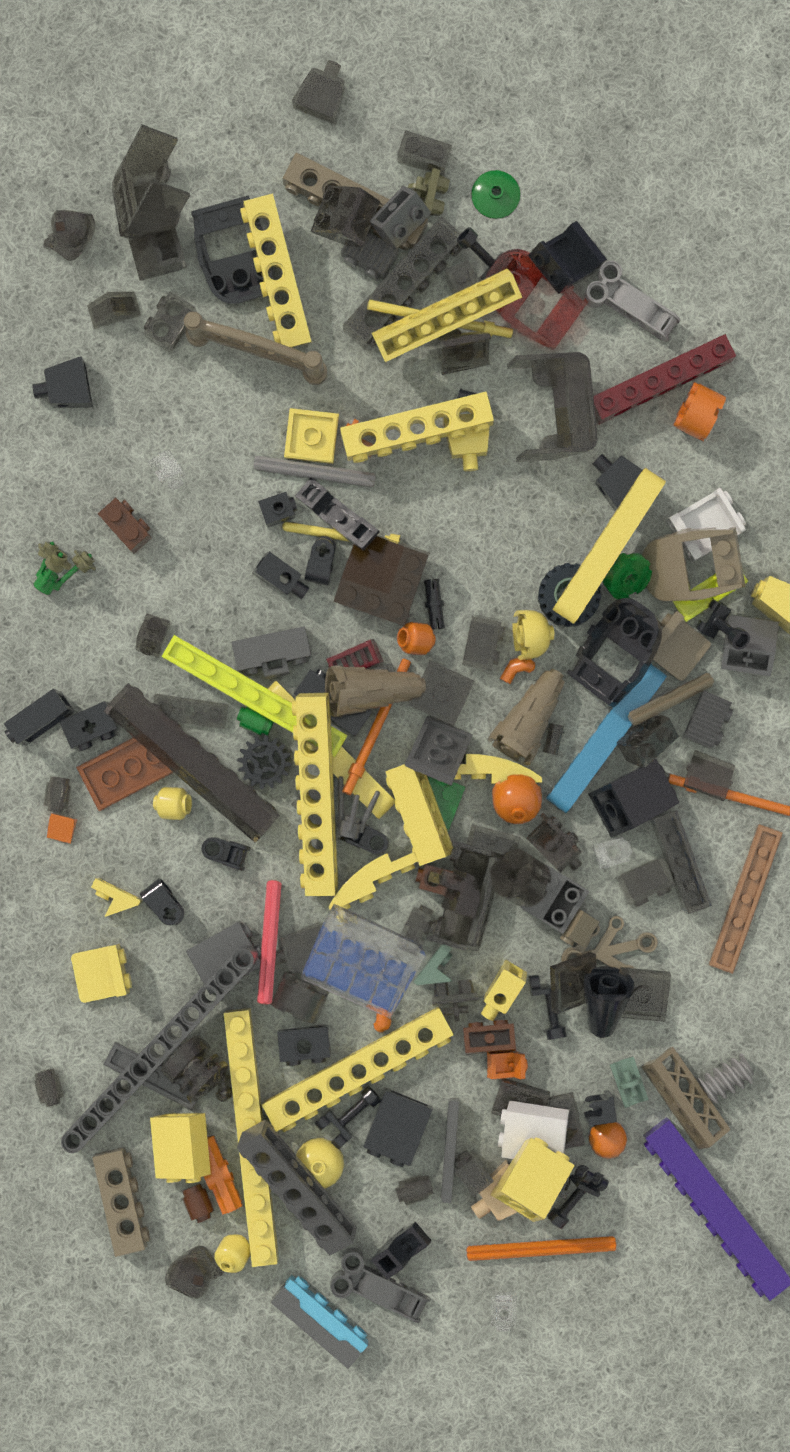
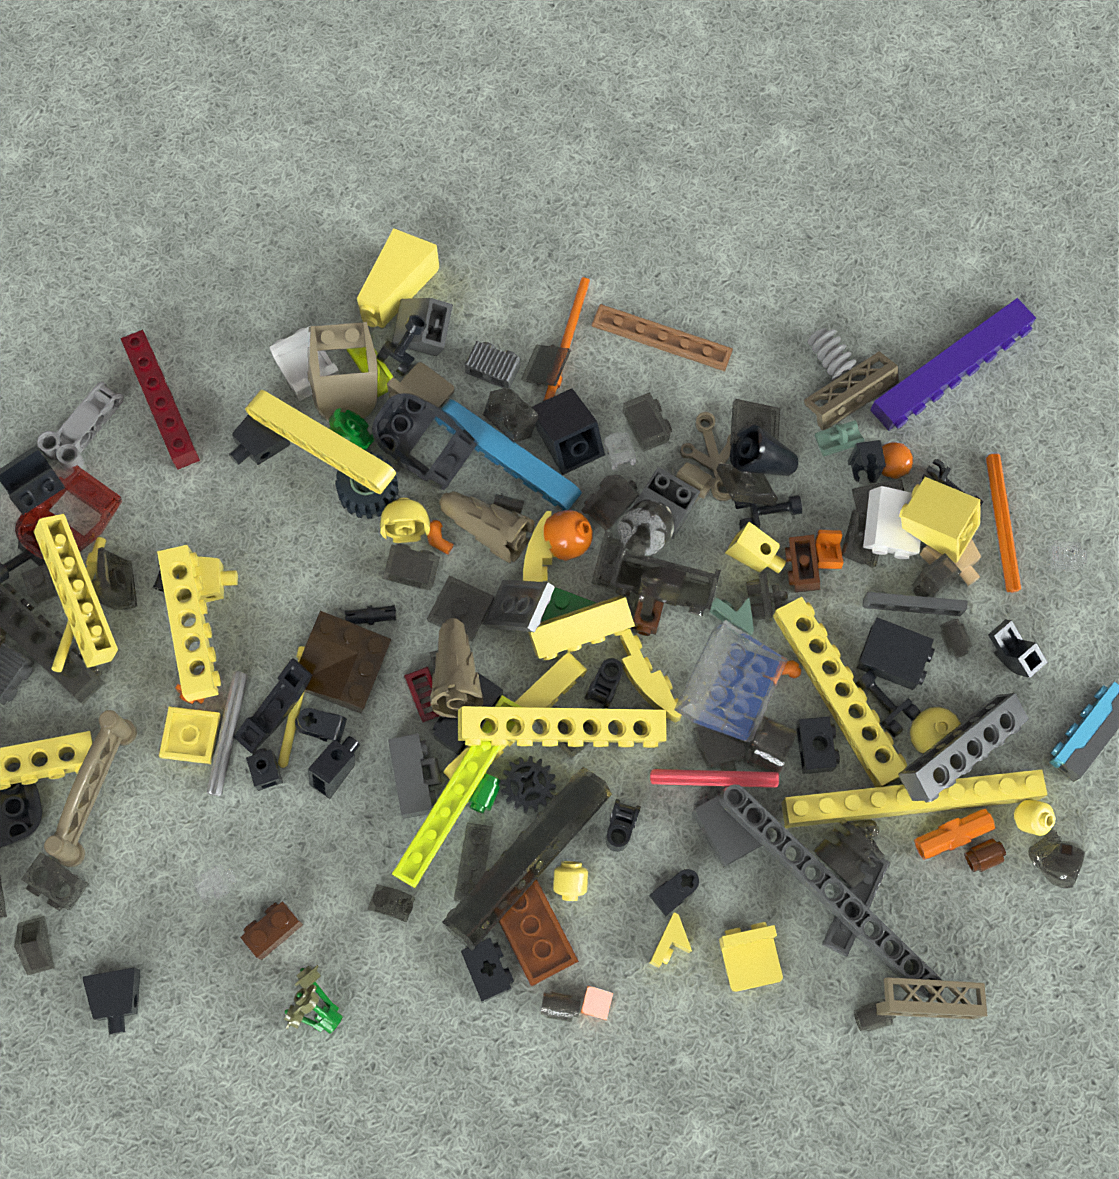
camera: 90 degrees left, 15 degrees down
(38, 718) = (477, 1024): black window -> none
(51, 1140) = (932, 1009): none -> dark tan fence
(122, 1240) = (1030, 932): dark tan brick -> none
(180, 1147) = (929, 870): light yellow brick -> none
(350, 825) = (594, 691): dark grey plant -> none
(357, 769) = (535, 685): orange bar -> none
(377, 1288) = (1055, 677): dark grey piece -> none
(416, 638) = (404, 630): orange head -> none
(418, 923) = (692, 632): clear smoke brick -> none
(573, 403) = (175, 479): clear smoke windscreen -> none
(670, 699) = (472, 395): dark tan axle -> none
(681, 862) = (613, 392): clear smoke brick -> none
(699, 411) = (194, 363): orange brick -> none

